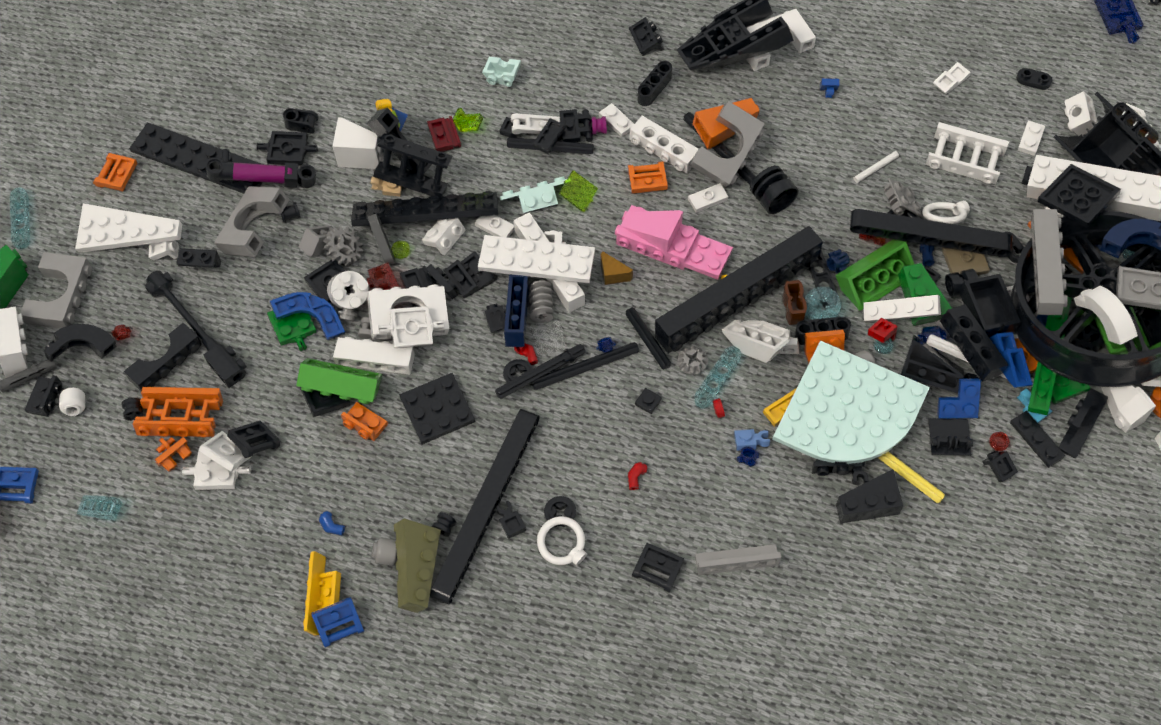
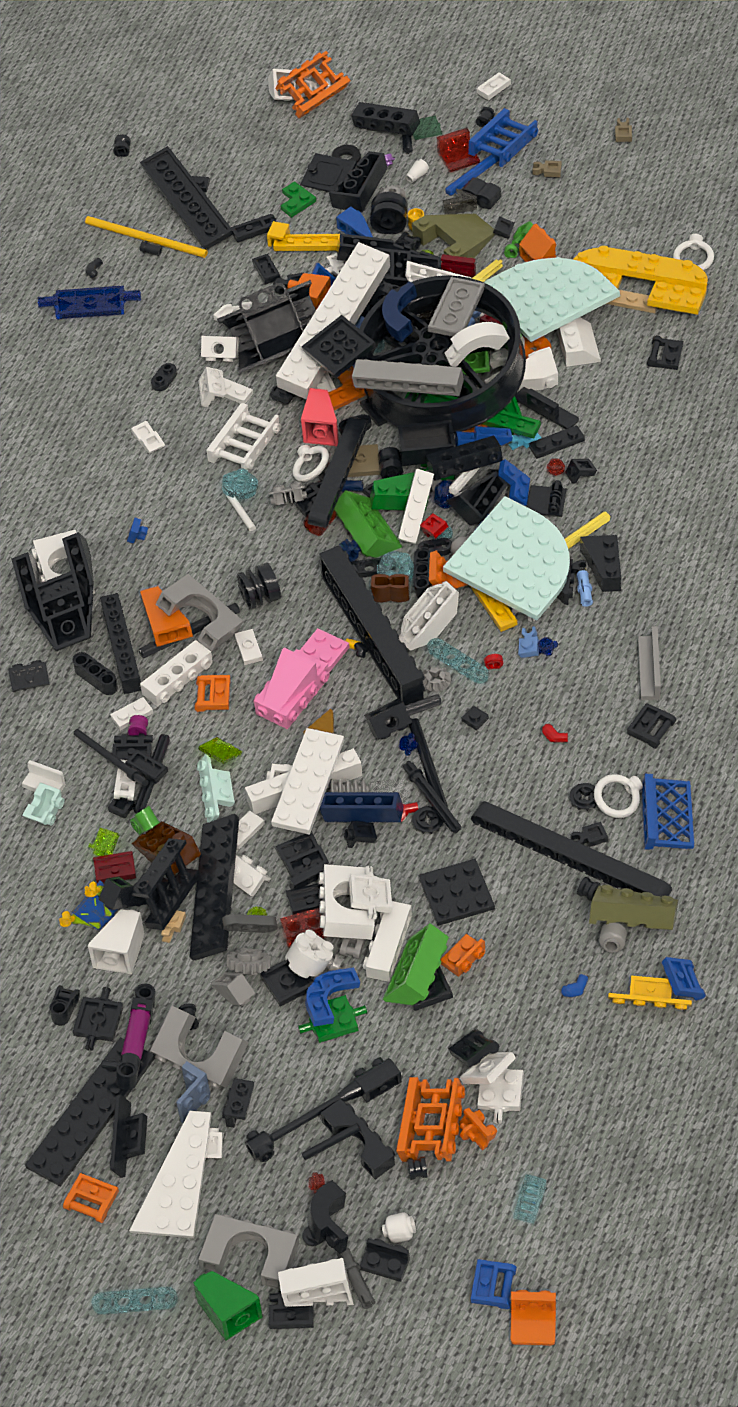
camera: 80 degrees left, 10 degrees down
(158, 336) = (331, 1141): none -> black bar
(172, 185) = (128, 1136): none -> black bracket
(209, 226) = (196, 1092): none -> sand blue bracket
(468, 168) = (154, 840): none -> reddish brown slope
(489, 145) = (144, 820): none -> bright green piece
(531, 68) = (43, 774): none -> white panel
(536, 124) = (132, 773): none -> black bar
(540, 575) = (650, 815): none -> blue fence
(628, 320) = (377, 719): none -> black brick
(692, 95) = (121, 643): none -> black brick
(833, 485) = (584, 588): none -> light blue pin
(858, 341) = (436, 544): none -> black beam
(910, 151) = (239, 484): none -> clear light blue plate
(1006, 208) = (319, 419): none -> coral slope
(1029, 116) = (211, 385): none -> white bracket

